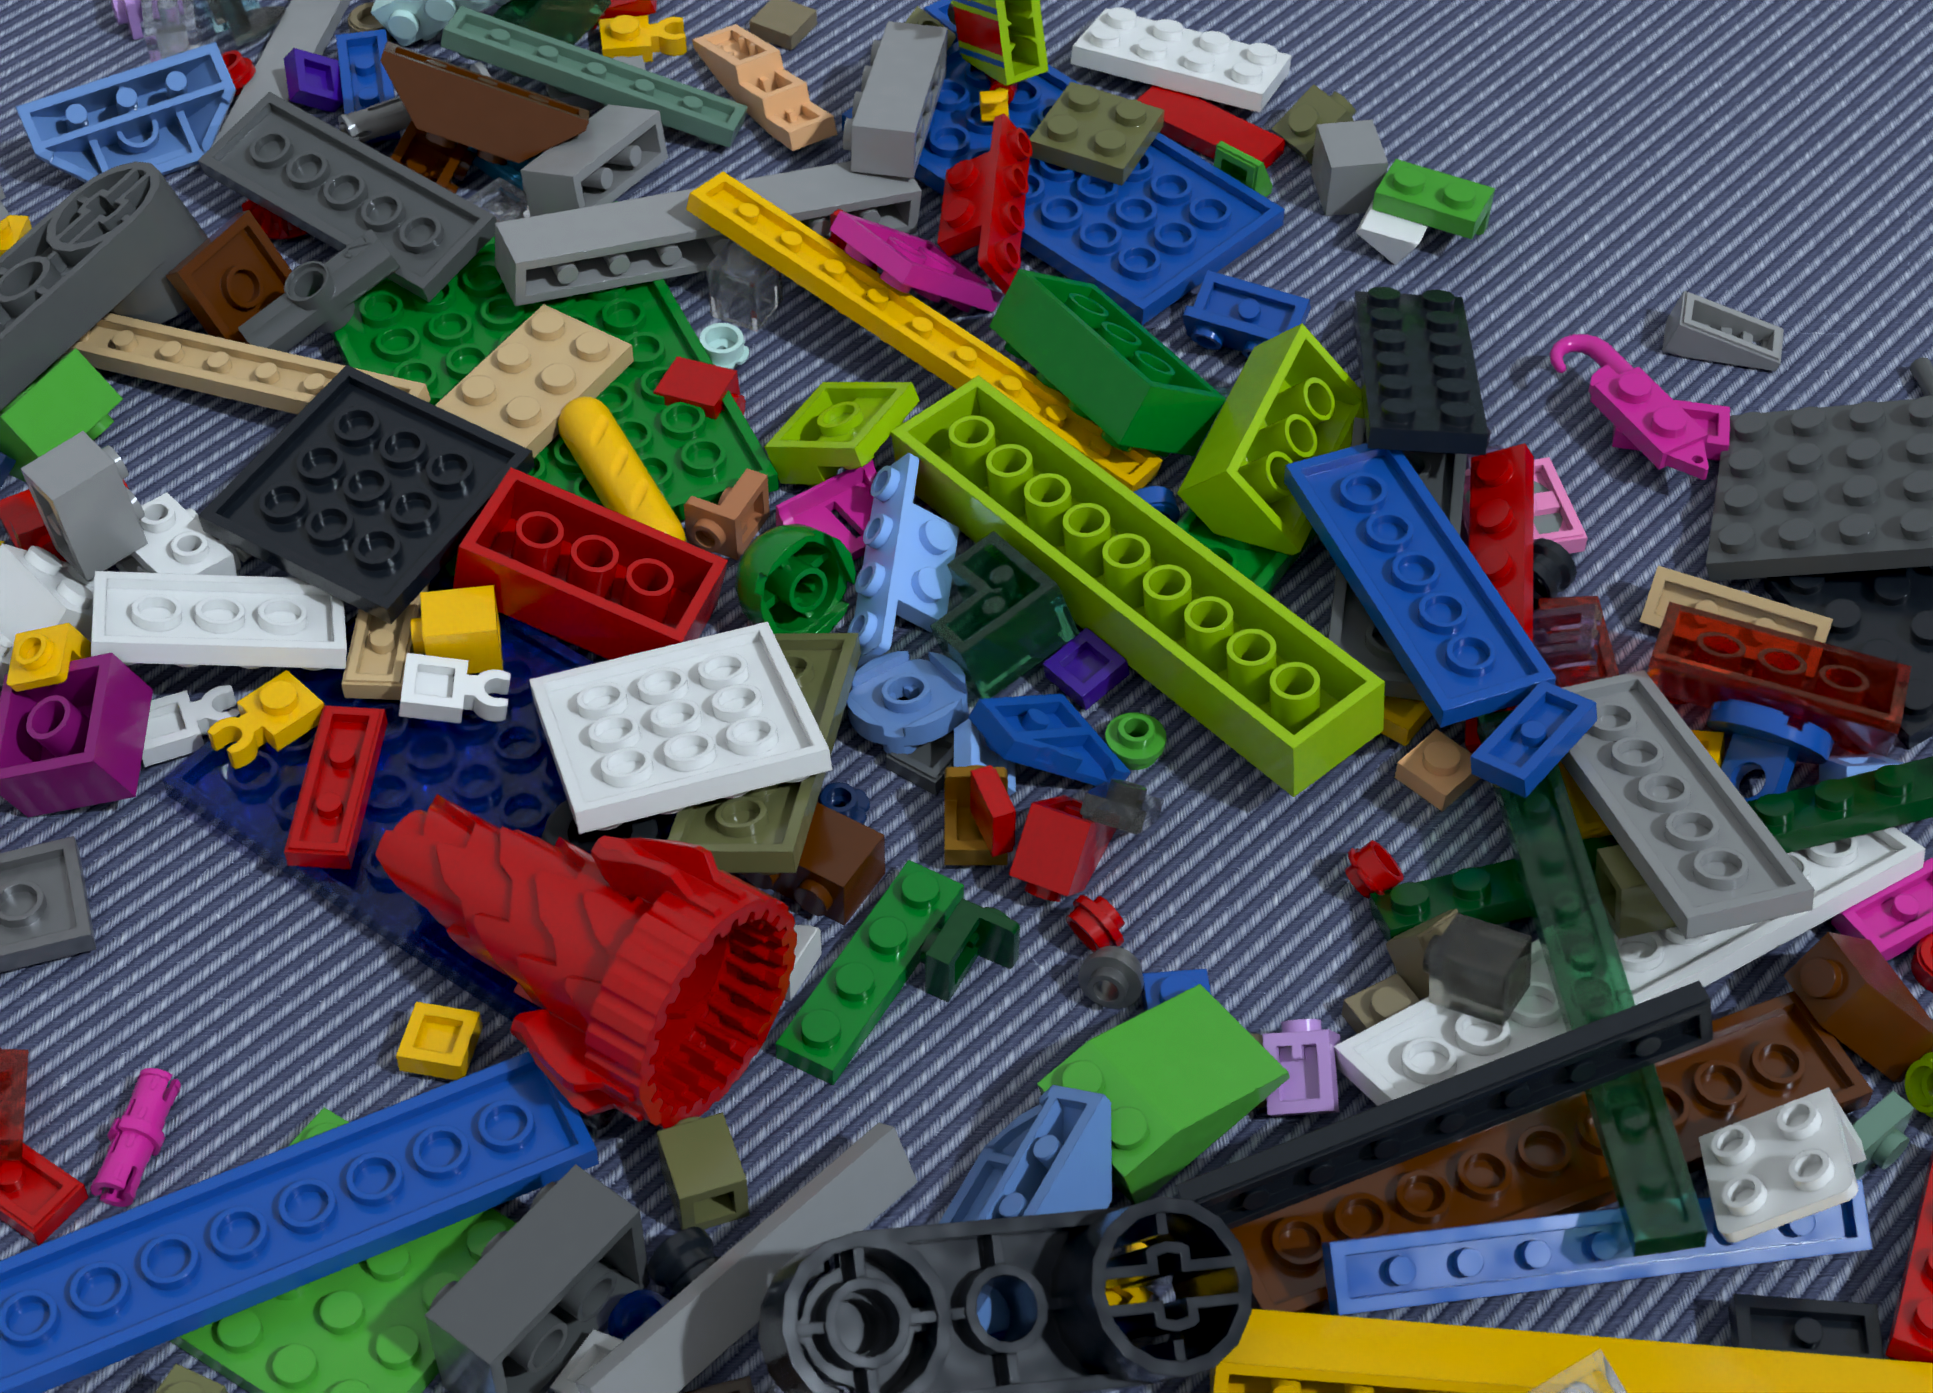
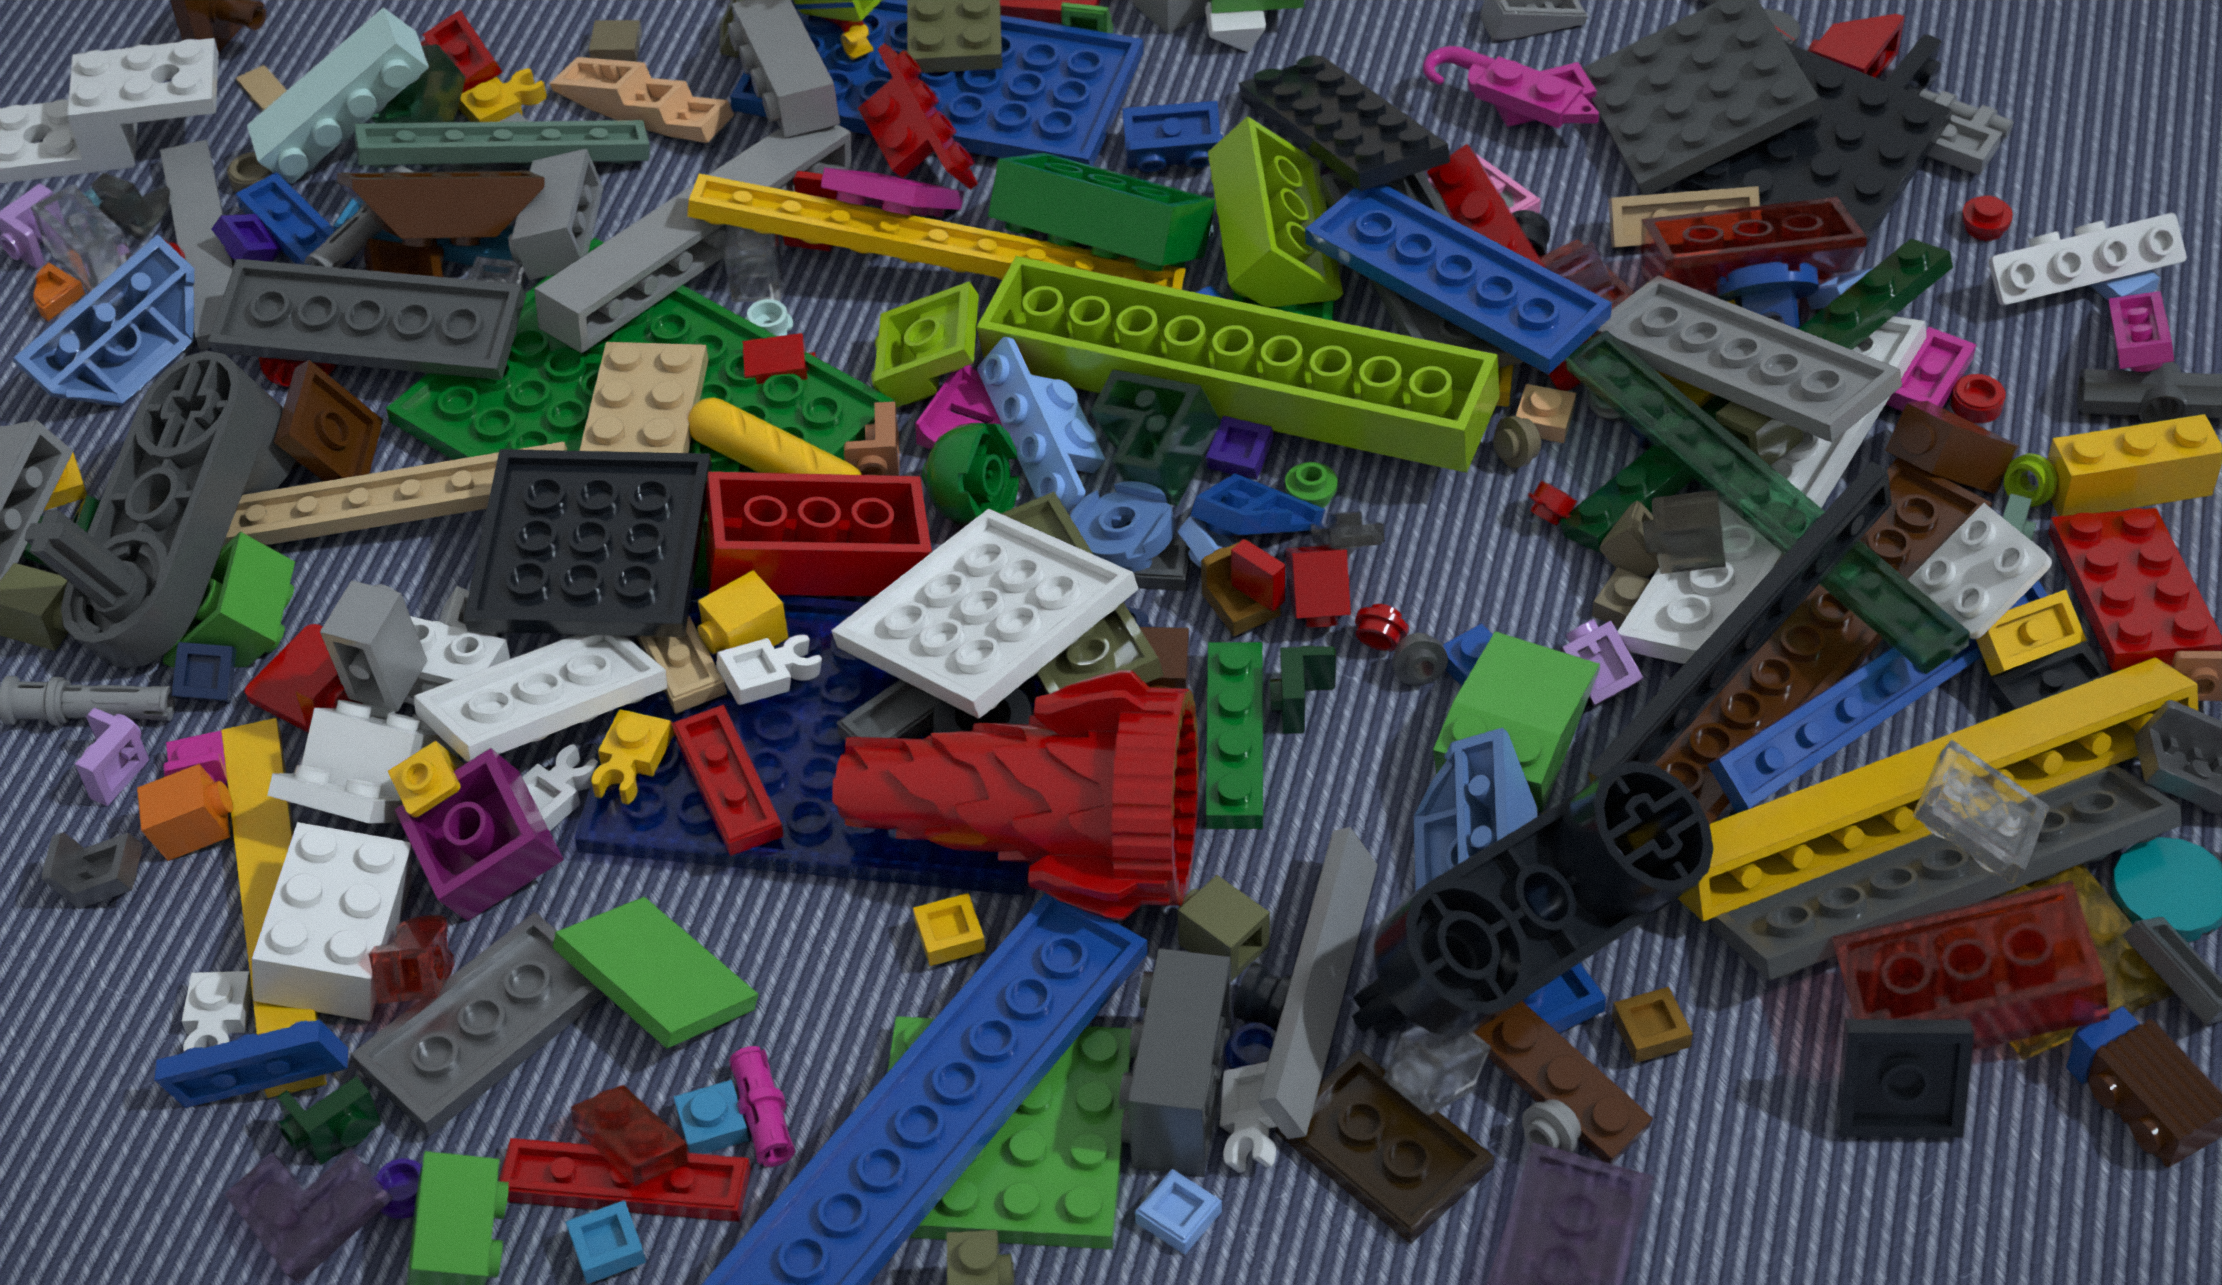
camera: 25 degrees left, 0 degrees up
(81, 1125) = (711, 1118): none -> dark azure plate
(130, 55) = (55, 291): none -> orange tile
(134, 950) = (655, 971): none -> bright green tile
(321, 295) = (412, 407): dark grey piece -> none
(520, 796) = (893, 713): none -> dark grey tile
(1381, 787) = (1516, 441): none -> dark tan plate
(1533, 738) = (1626, 352): blue plate -> none
(1813, 1264) = (2031, 633): none -> yellow plate

